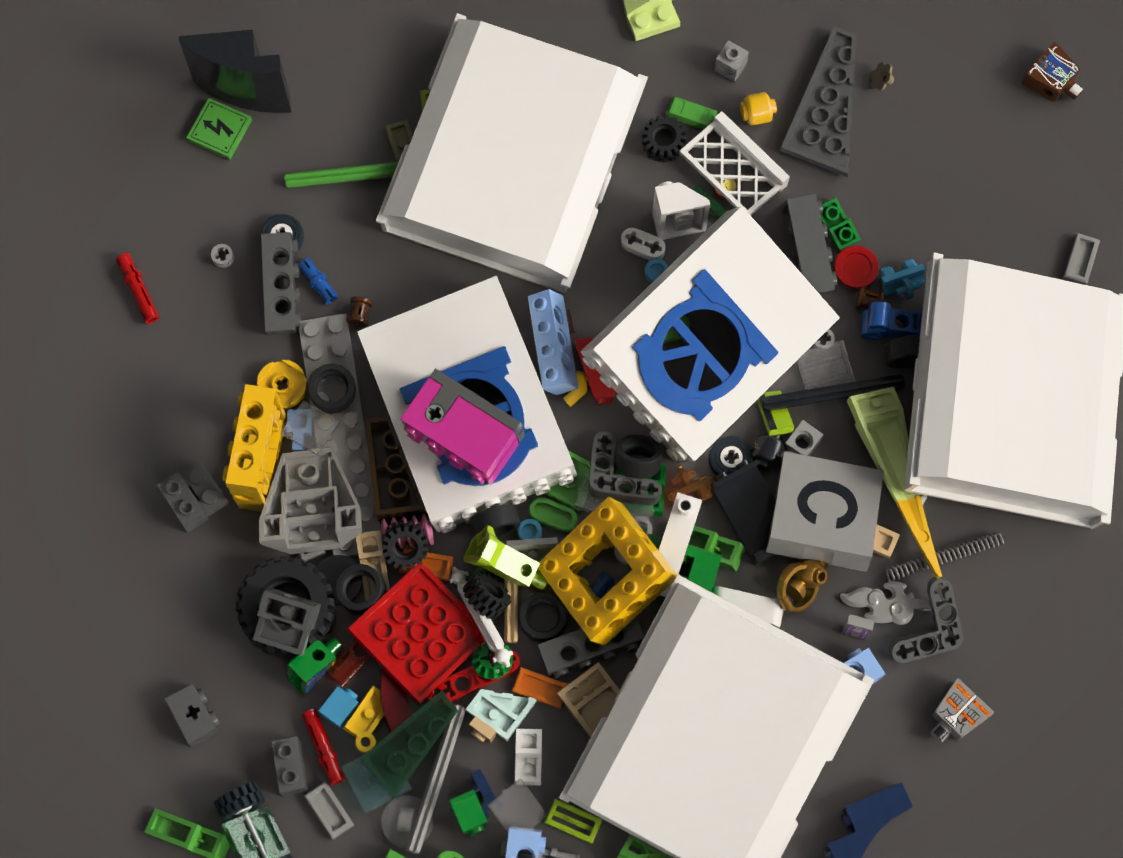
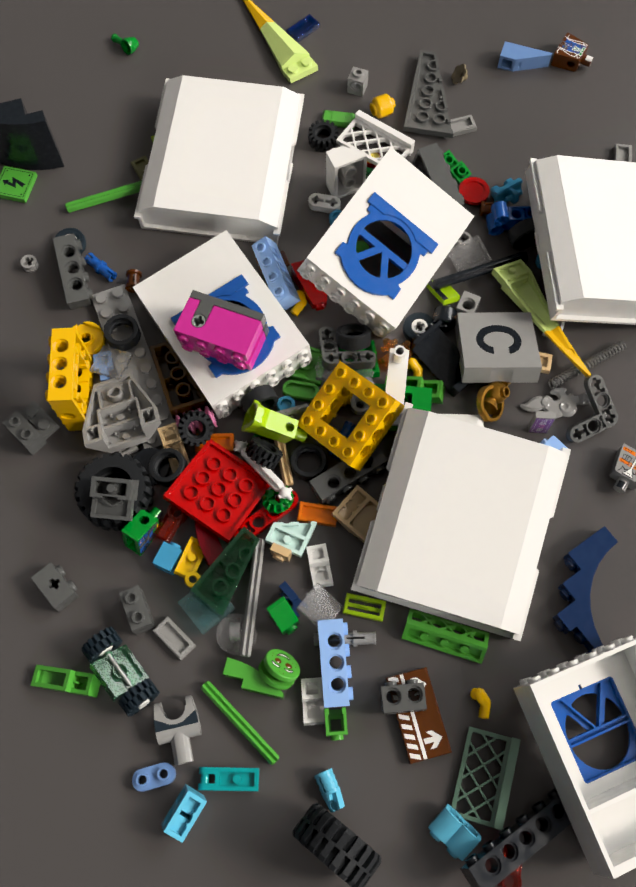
camera: 10 degrees left, 5 degrees down
(326, 755) = (165, 597): red pin -> none
(713, 513) = (415, 366): none -> yellow arm
(866, 159) = (463, 125): none -> light grey tile
(977, 67) = (519, 57): none -> medium blue slope

